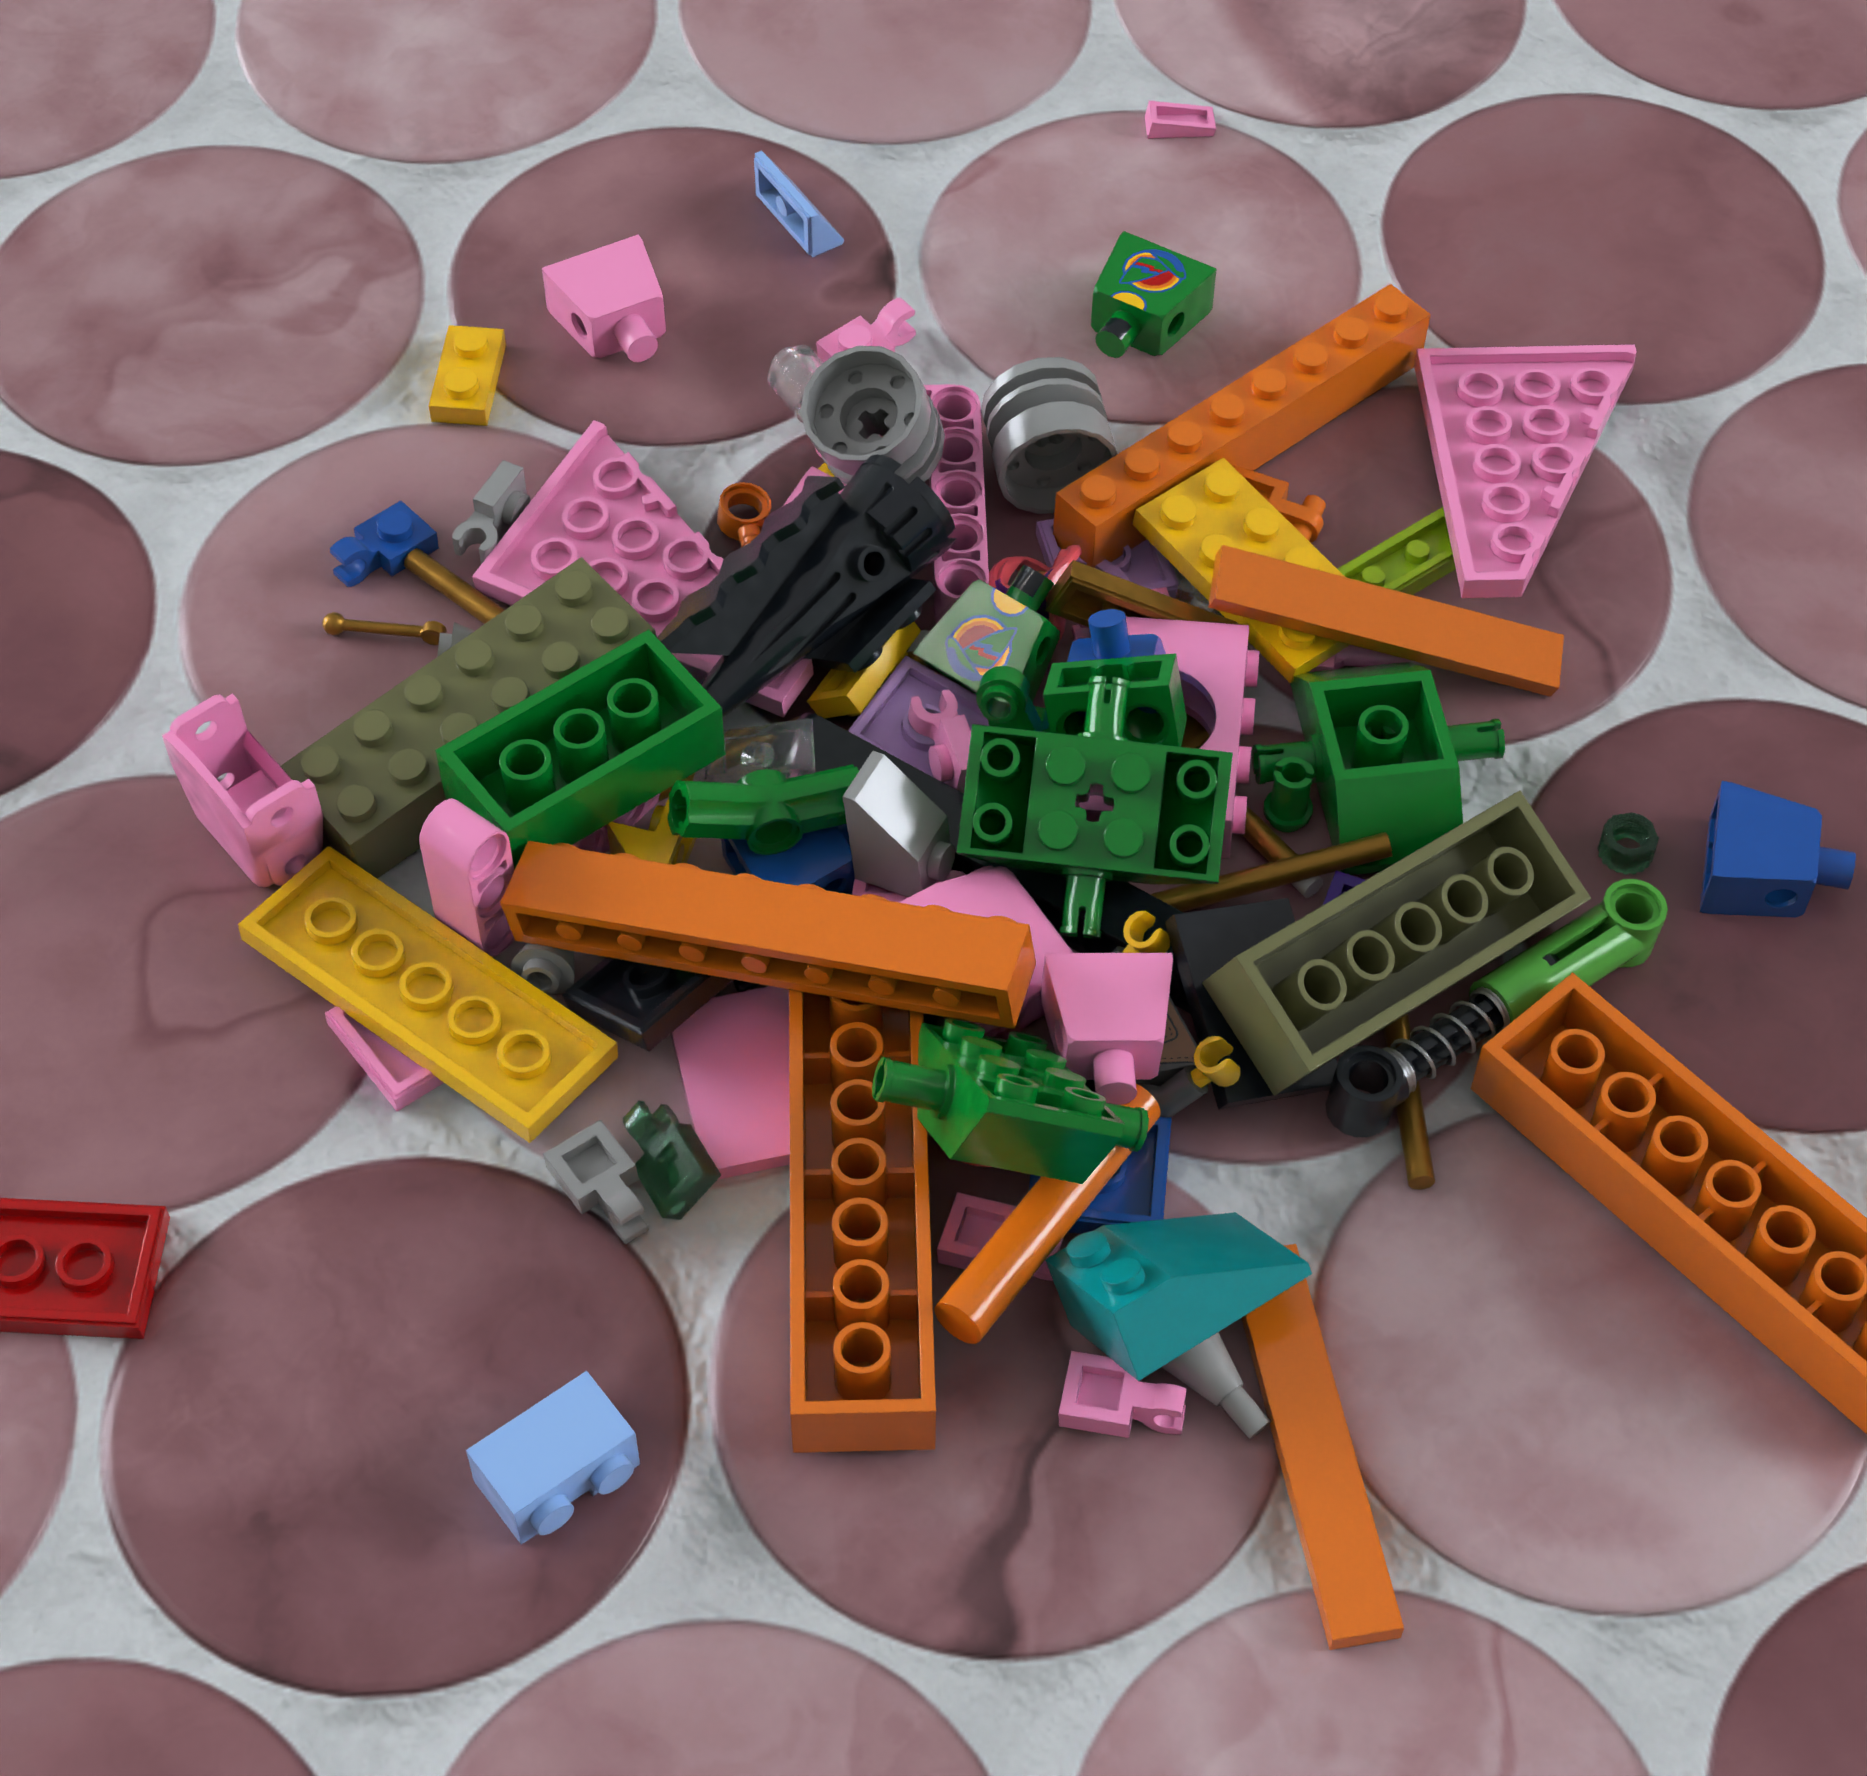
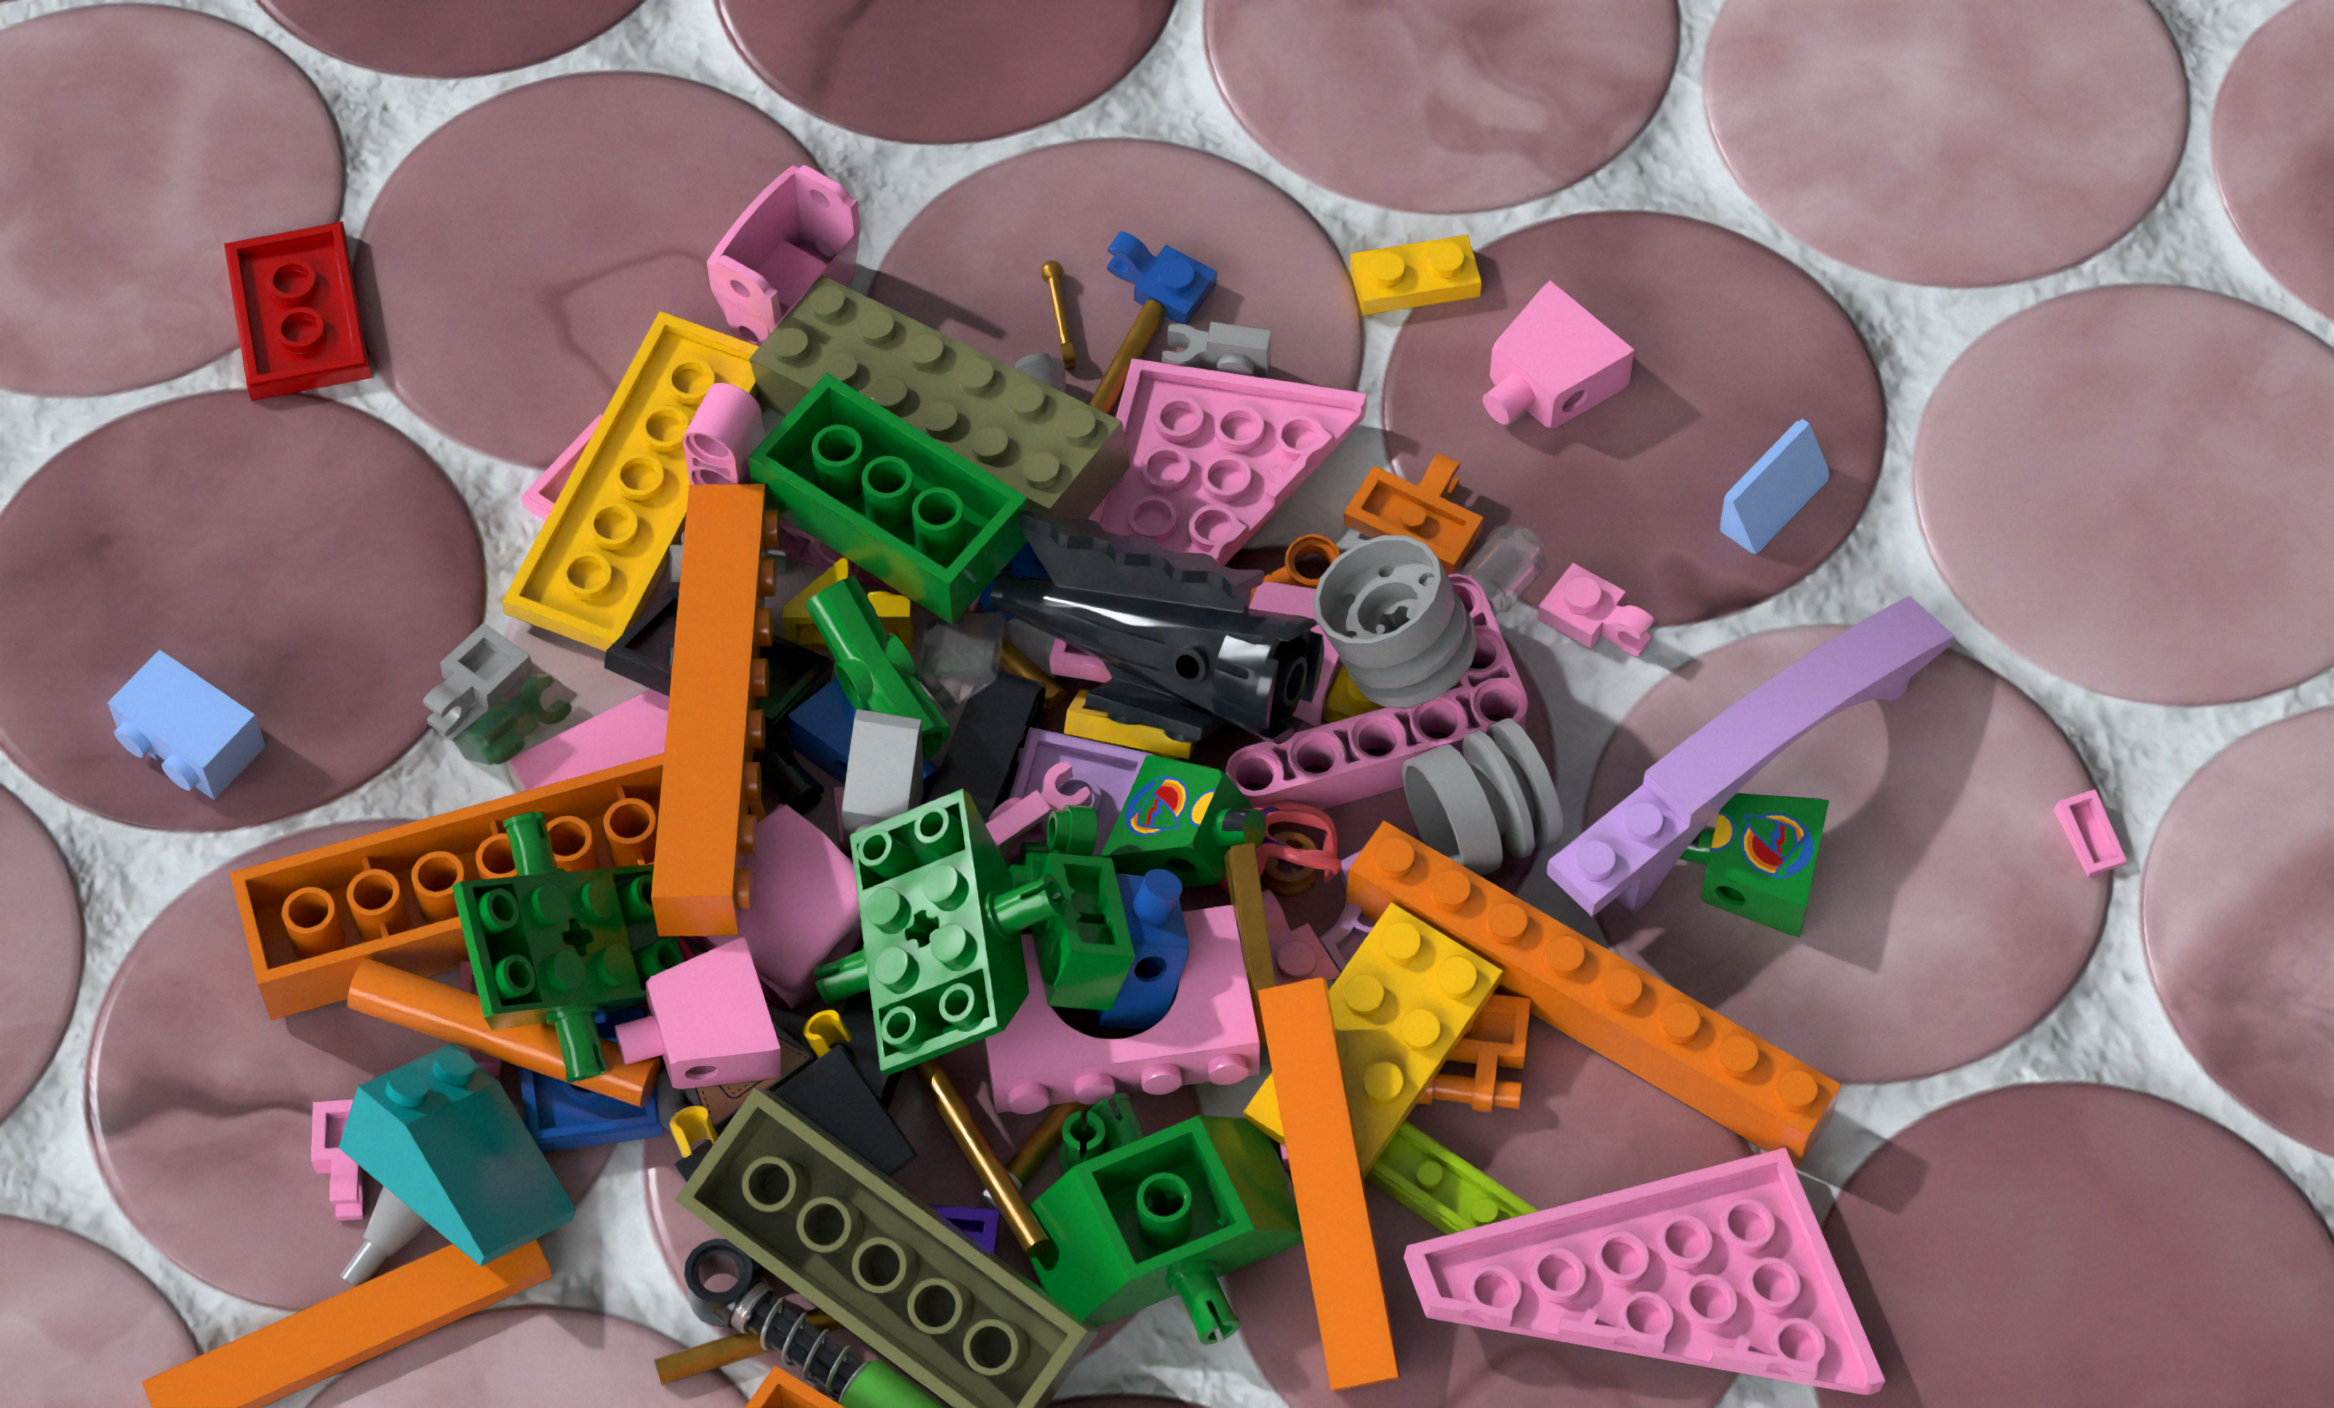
camera: 75 degrees right, 5 degrees up
(725, 430) = (1397, 507): none -> orange plate
(1122, 341) = (1650, 829): none -> lavender slope

